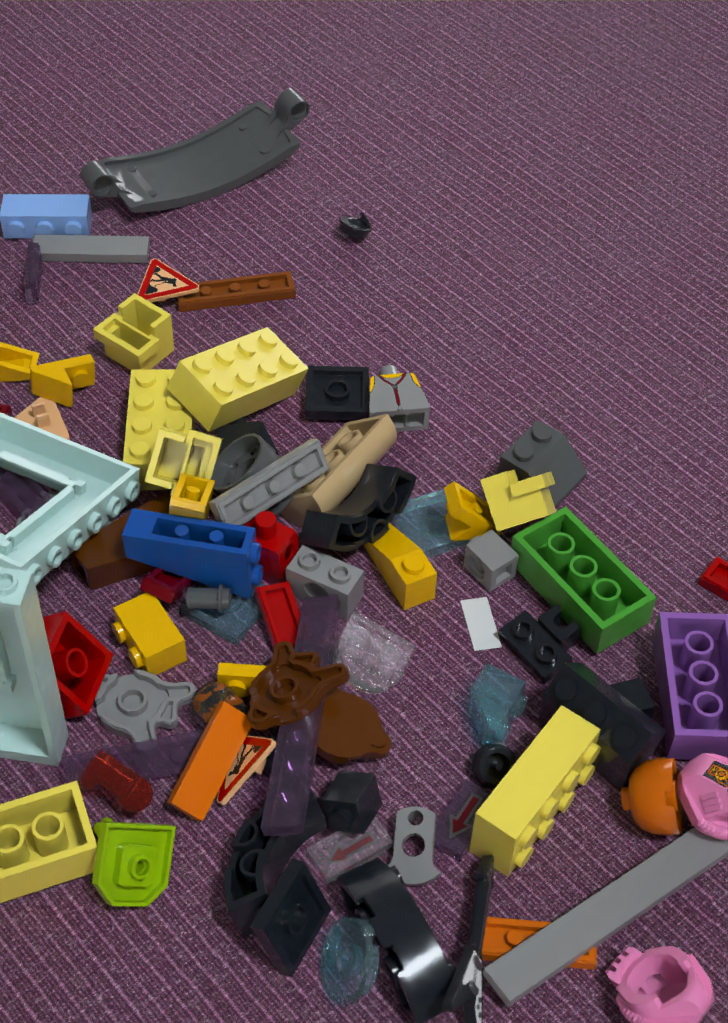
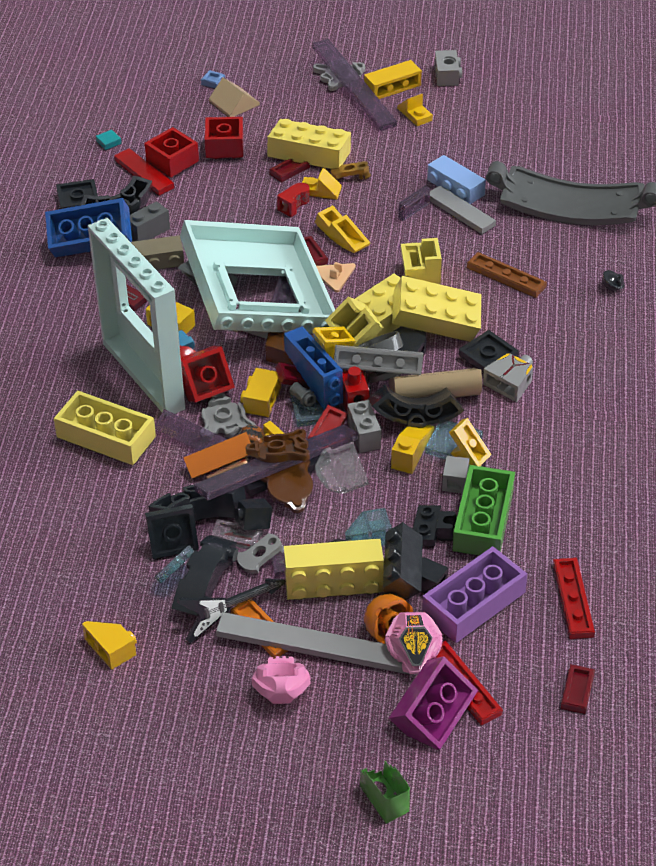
camera: 50 degrees right, 5 degrees down
(59, 378) = (363, 258): yellow slope -> none
(130, 788) = (174, 432): clear red leg -> none
(132, 861) = (141, 465): lime piece -> none
(164, 283) = (469, 246): piece -> none
(480, 624) = (419, 497): white sticker -> none
(518, 501) = (498, 451): light yellow plate -> none
(544, 451) = (542, 454): dark grey slope -> none

